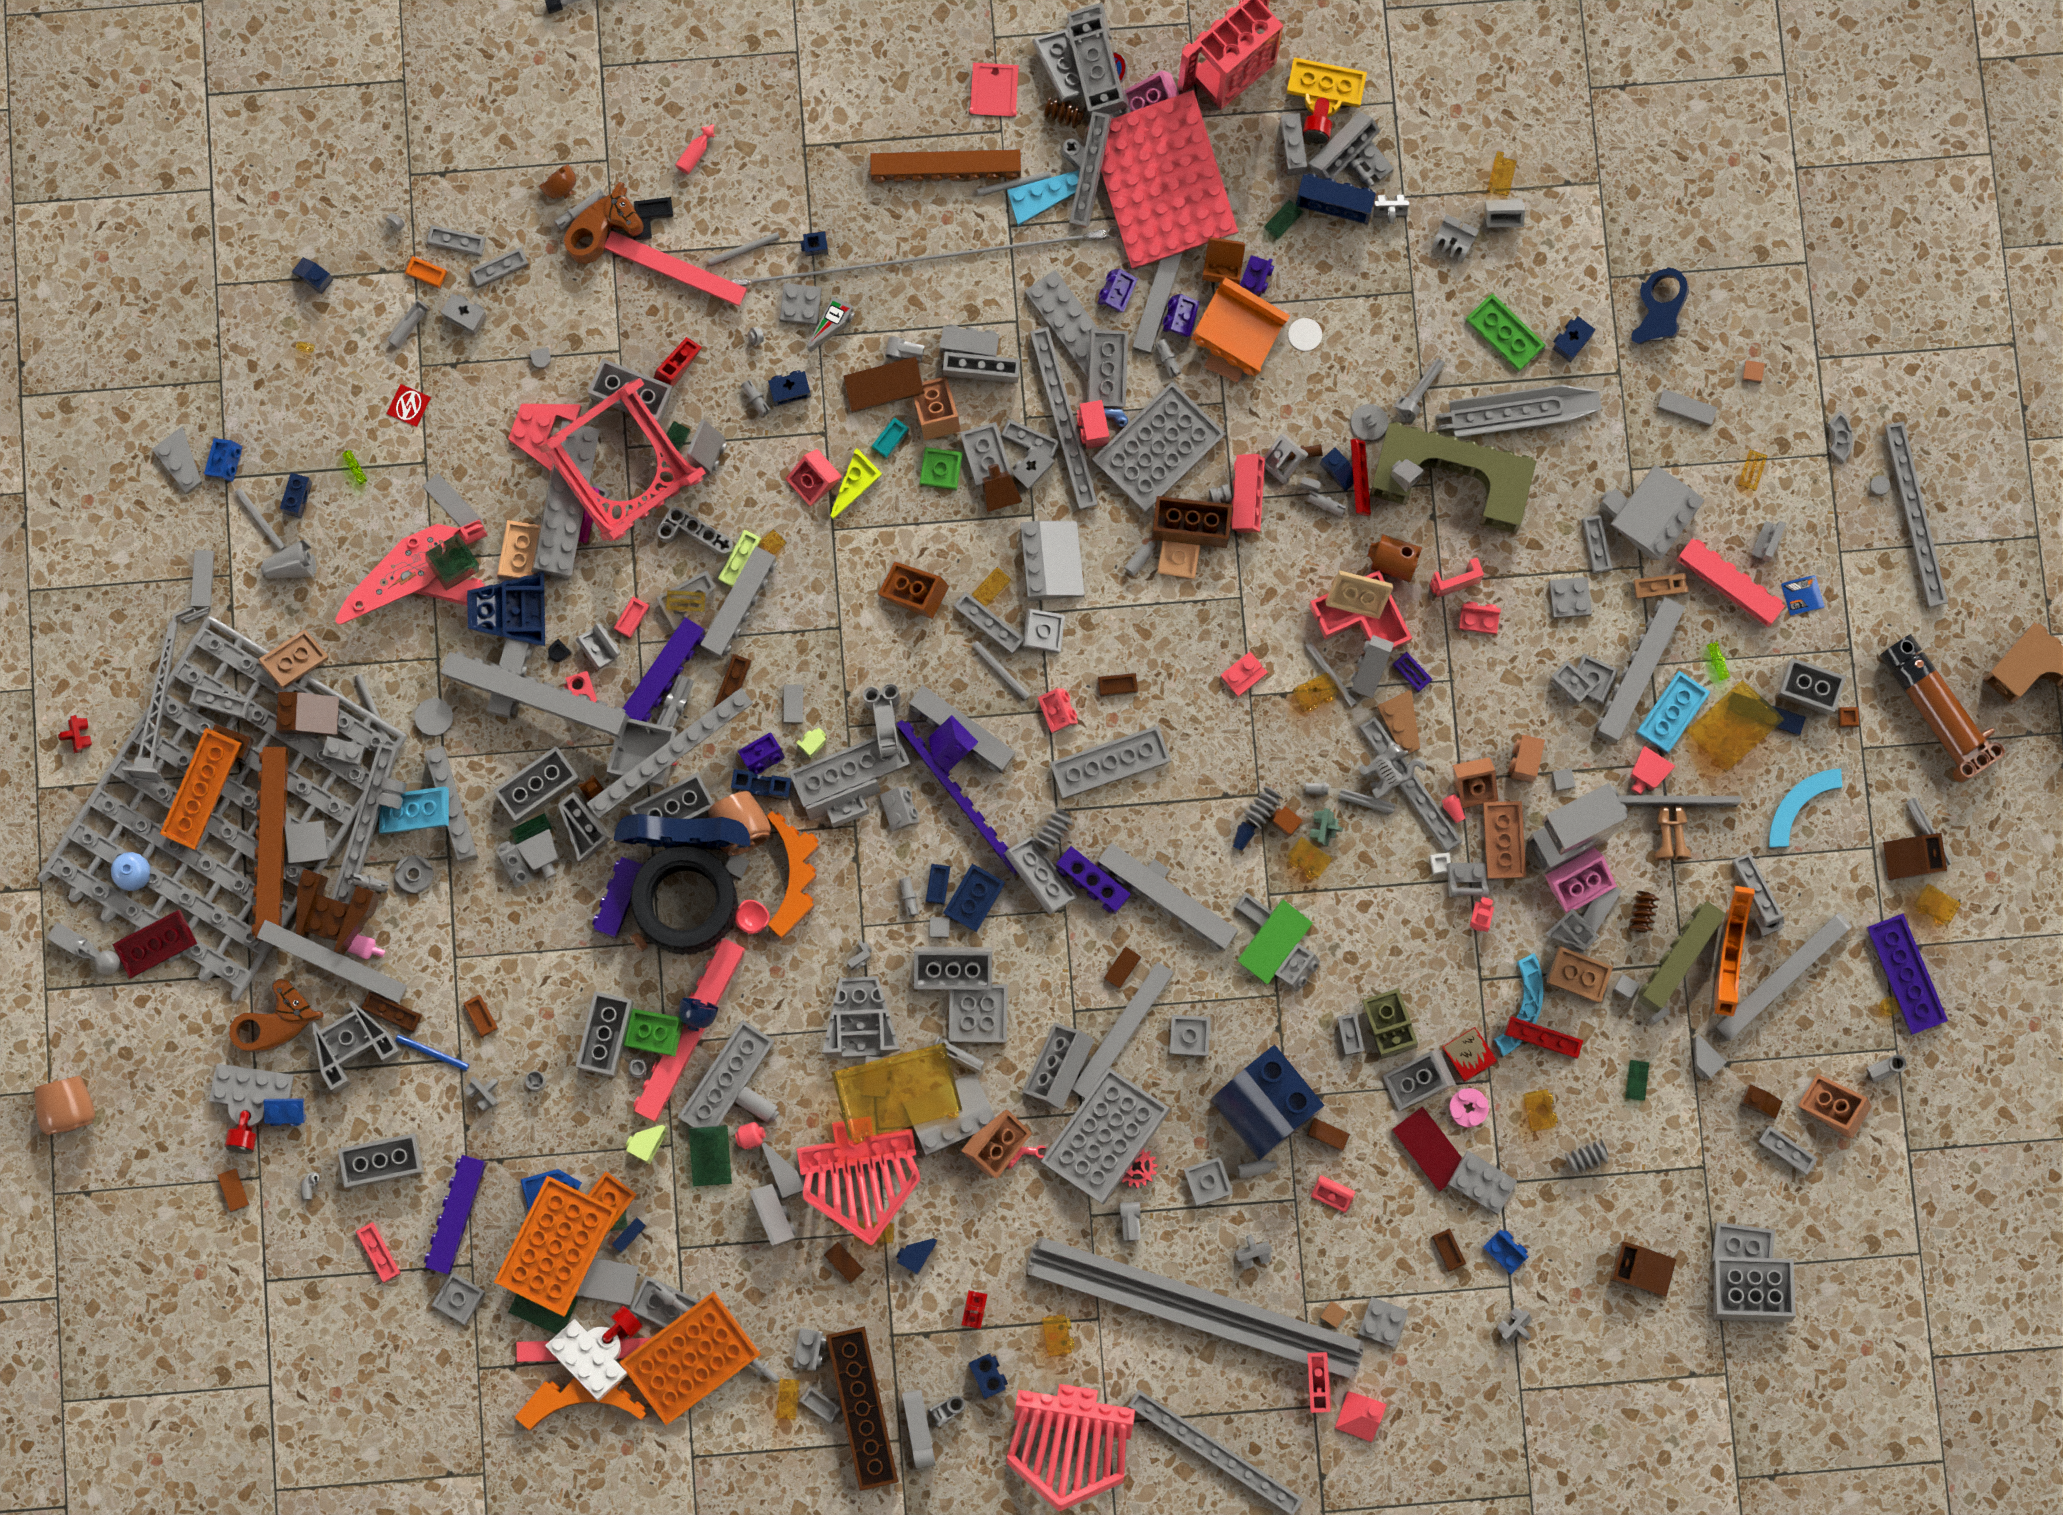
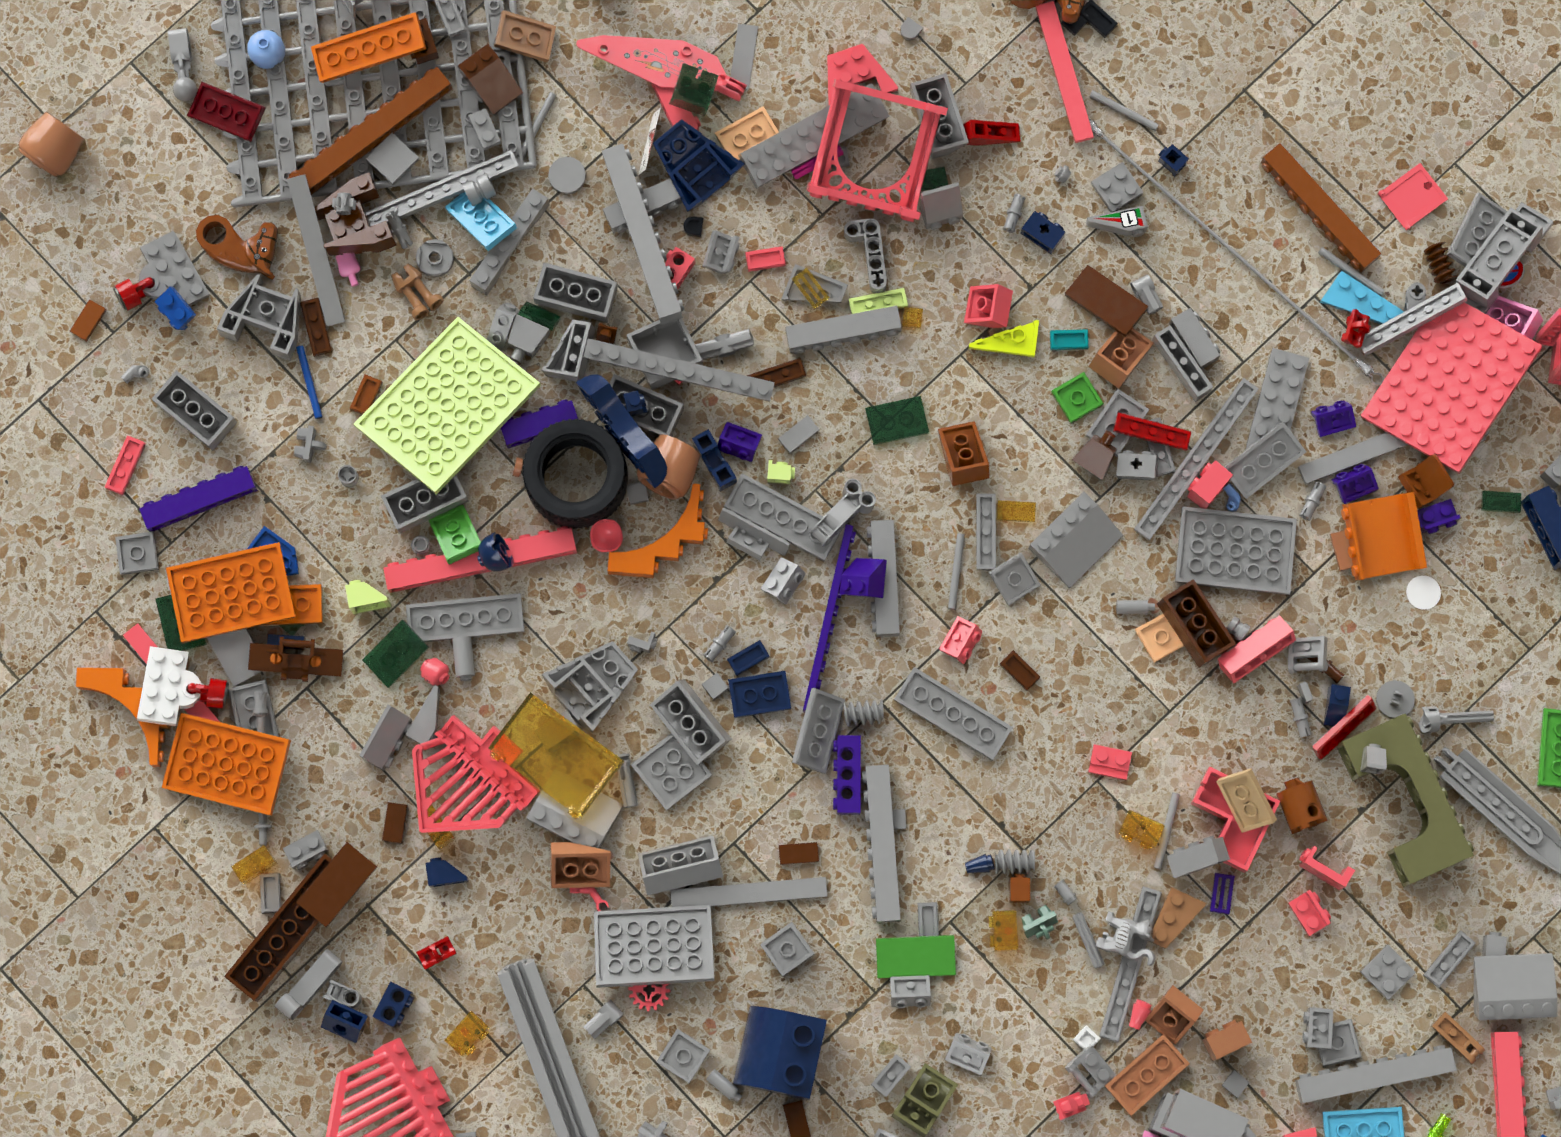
camera: 55 degrees right, 0 degrees up
(314, 908) = (344, 204): none -> light grey gear
(419, 903) = (414, 280): none -> medium nougat piece
(461, 630) = (649, 141): none -> white sticker
(544, 957) = (447, 405): none -> yellowish green plate
(655, 1242) = (295, 666): none -> reddish brown piece
(664, 670) = (742, 316): dark purple brick -> none
(667, 808) = (635, 403): none -> dark blue brick
(695, 151) = (1169, 12): coral wheel -> none
(845, 620) = (897, 420): none -> clear green tile
(859, 1344) = (336, 884): none -> reddish brown tile
(970, 1424) = (344, 1021): none -> dark blue brick
(1015, 433) = (1152, 431): none -> red tile
(1057, 211) = (1359, 321): none -> red hips
(1381, 961) = (968, 1053): none -> light grey bracket

